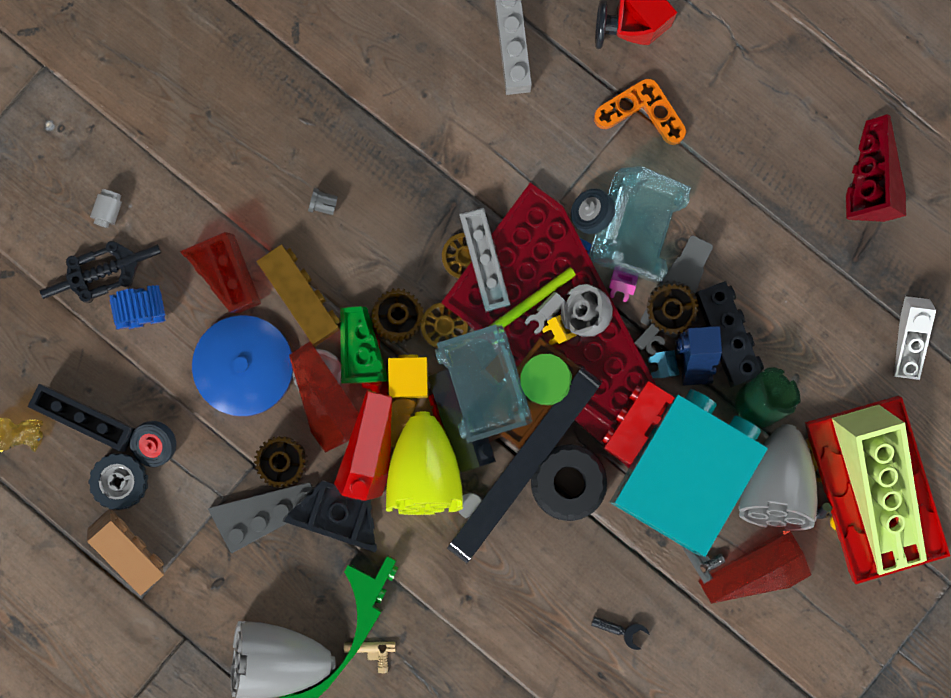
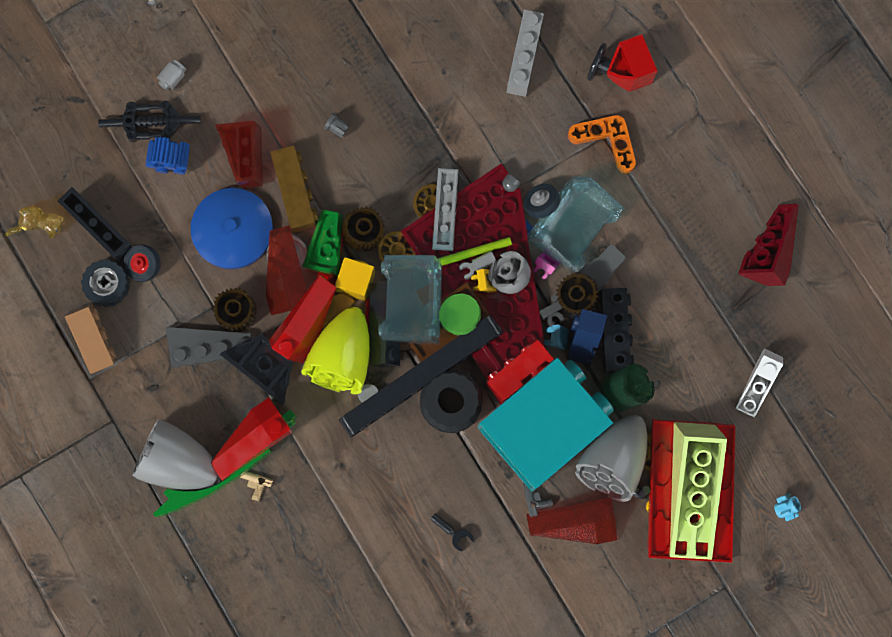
camera: 20 degrees right, 5 degrees down
(357, 601) = (255, 434): none -> red wedge
(550, 203) = (510, 183): none -> dark grey hinge

